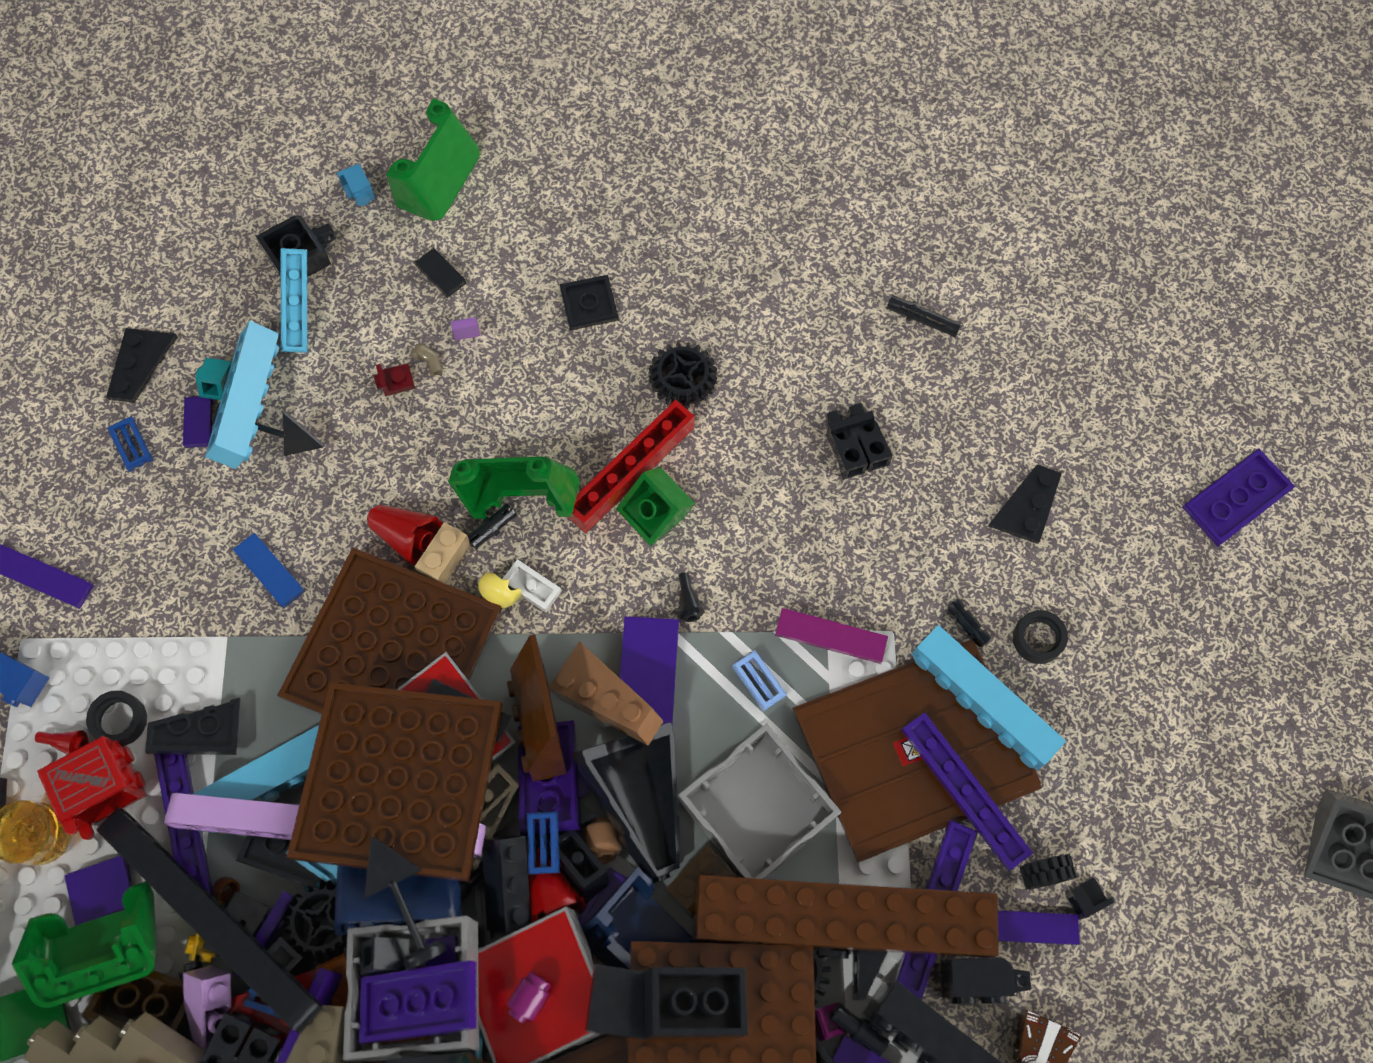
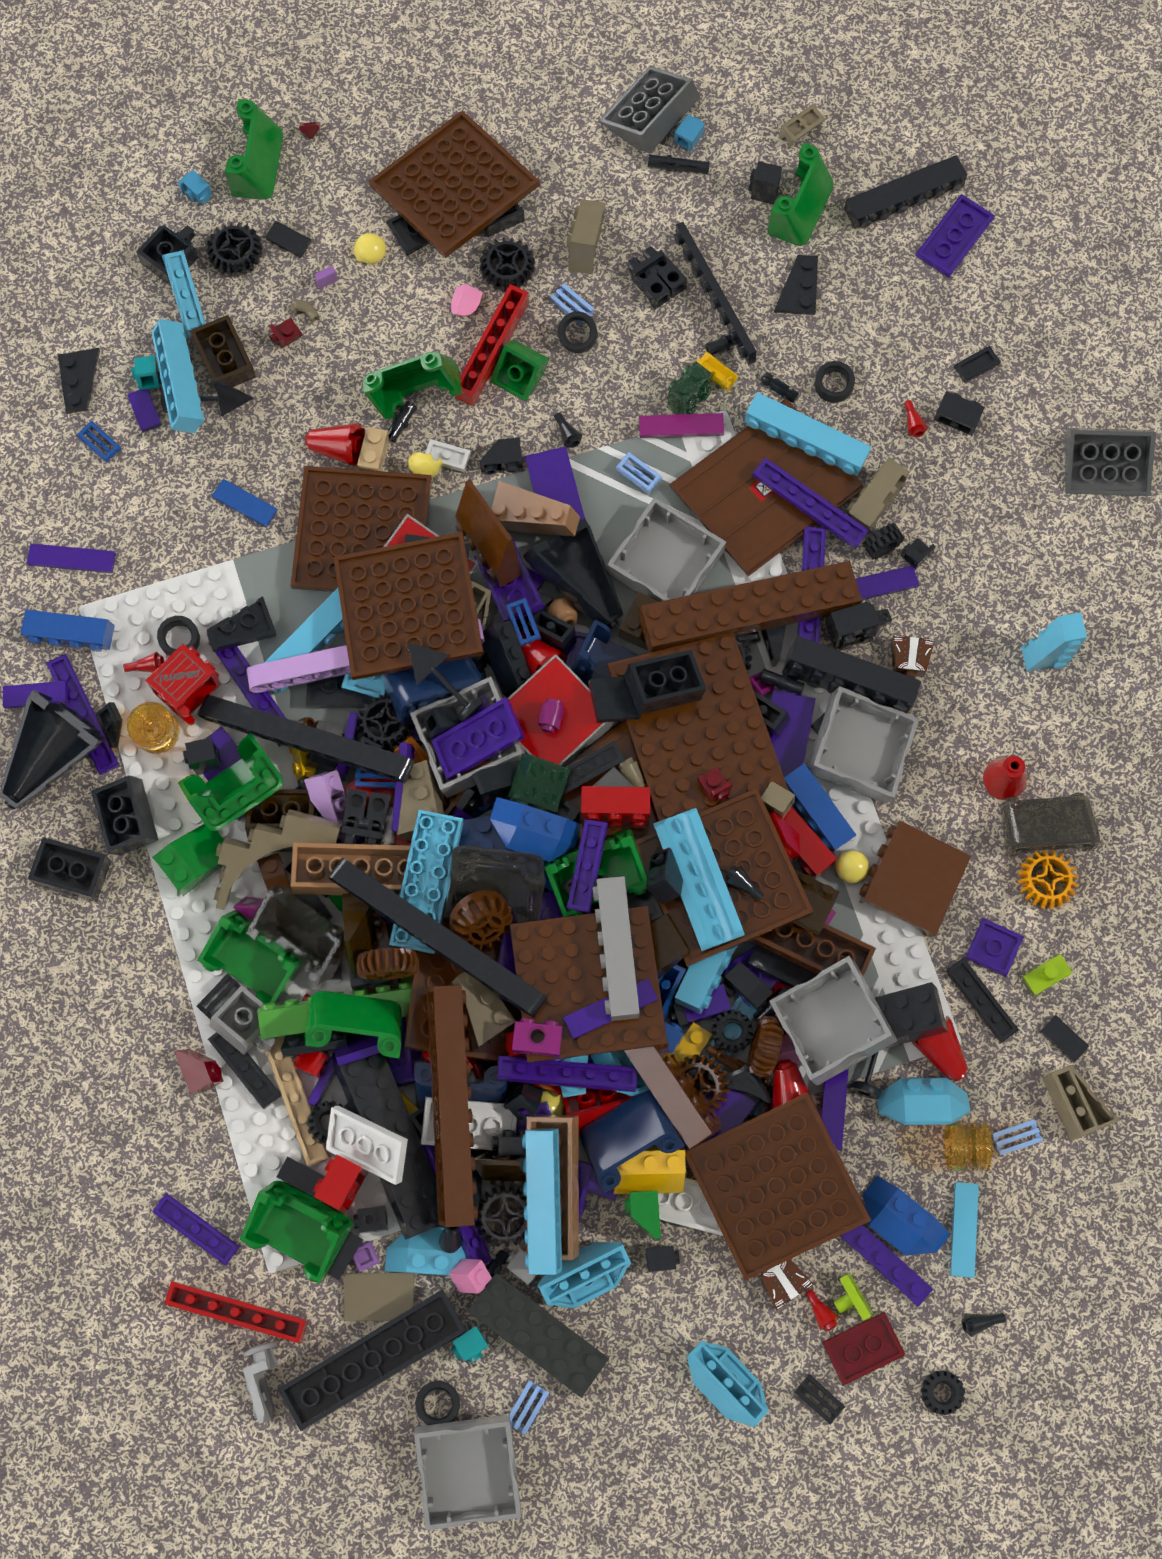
camera: 15 degrees left, 5 degrees up
(71, 895) = (202, 756): none -> black brick
(311, 382) = (223, 352): none -> dark brown brick
(386, 270) = (242, 239): none -> black gear
(510, 157) = (309, 129): none -> dark red slope
(529, 310) = (369, 248): none -> light yellow hair
(599, 607) = (502, 456): none -> black slope
(619, 403) = (465, 300): none -> bright pink brick
(651, 264) = (454, 183): none -> reddish brown plate
(695, 320) = (509, 219): none -> black hinge
(723, 469) = (573, 316): none -> black tyre
(735, 427) = (559, 293): none -> light blue tile
(786, 367) = (585, 235): none -> dark tan wedge
(854, 594) = (689, 389): none -> clear green brick
(895, 579) = (720, 373): none -> yellow hinge
(910, 243) = (651, 108): none -> dark grey slope
(917, 546) = (719, 345): none -> black axle
(923, 490) = (717, 297): none -> black plate
(947, 282) = (689, 132): none -> dark azure brick
(1021, 366) = (765, 182): none -> black brick
(1046, 420) = (796, 218): none -> green windscreen
(1056, 806) = (878, 494): none -> dark tan wedge
(1084, 311) = (801, 124): none -> dark tan hinge
(1129, 723) = (915, 425): none -> red cone
(1190, 726) = (959, 413): none -> black brick
(1191, 427) = (905, 192): none -> black brick
(1227, 668) = (977, 364): none -> black tile

